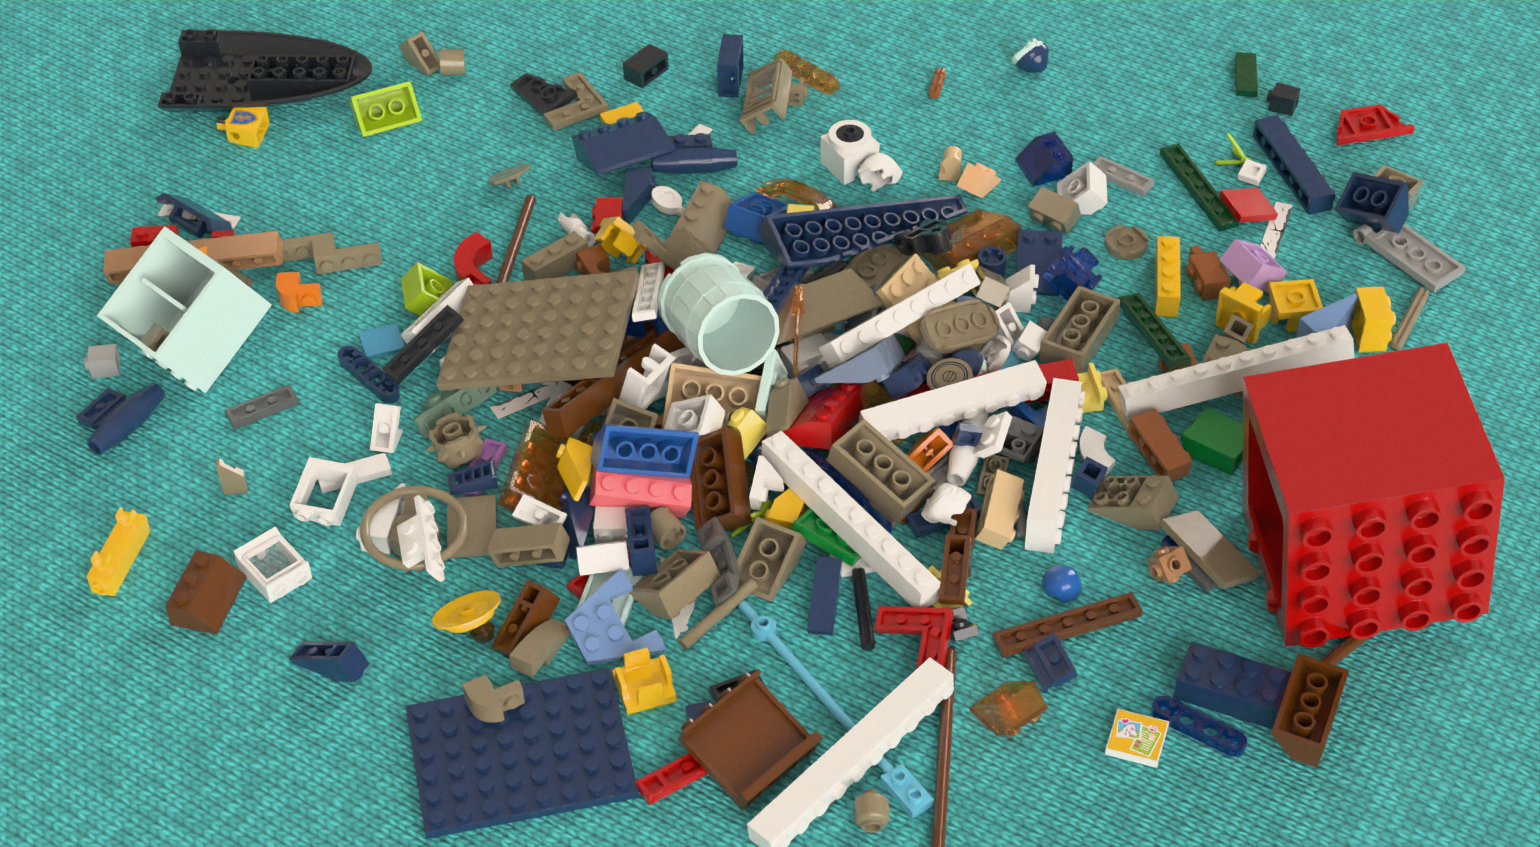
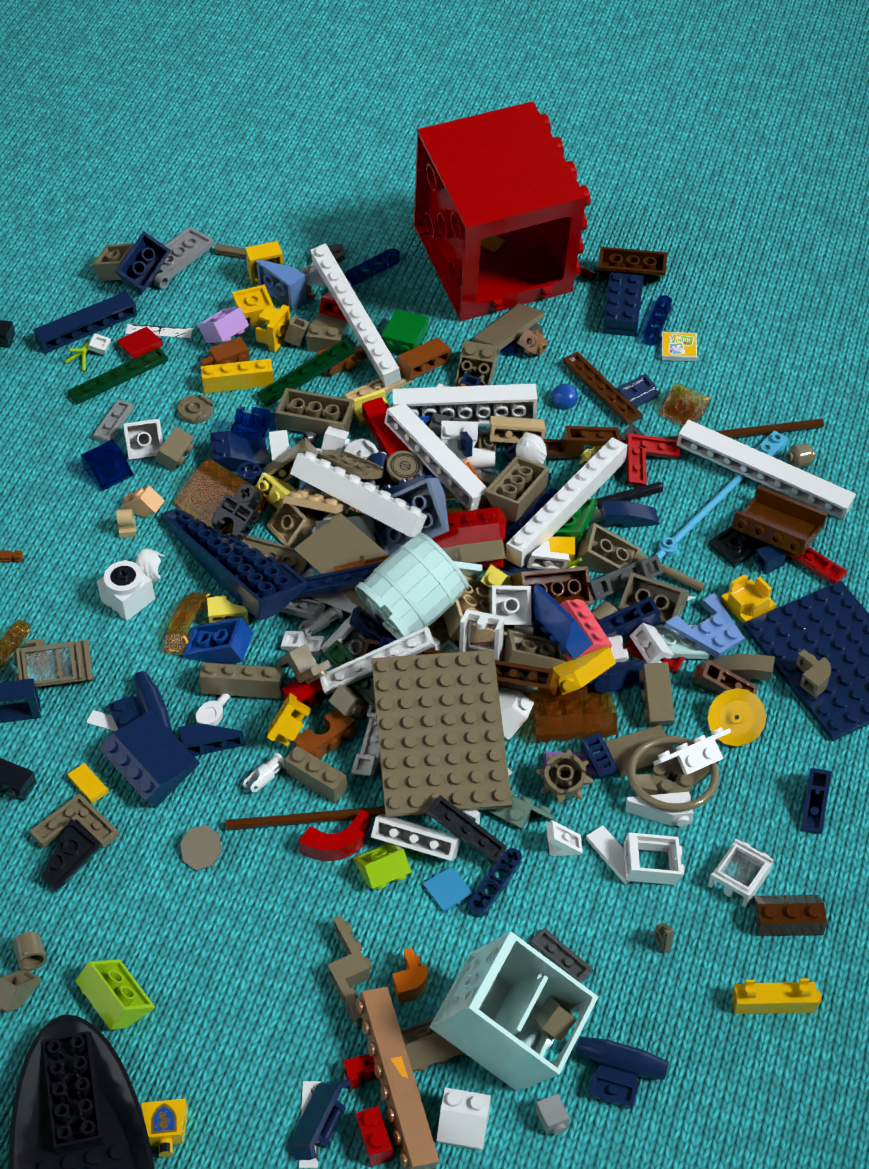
camera: 105 degrees left, 5 degrees up
(535, 512) = (627, 693): white slope -> none
(605, 208) = (248, 750): red brick -> none
(1369, 124) = (27, 287): red wing -> none

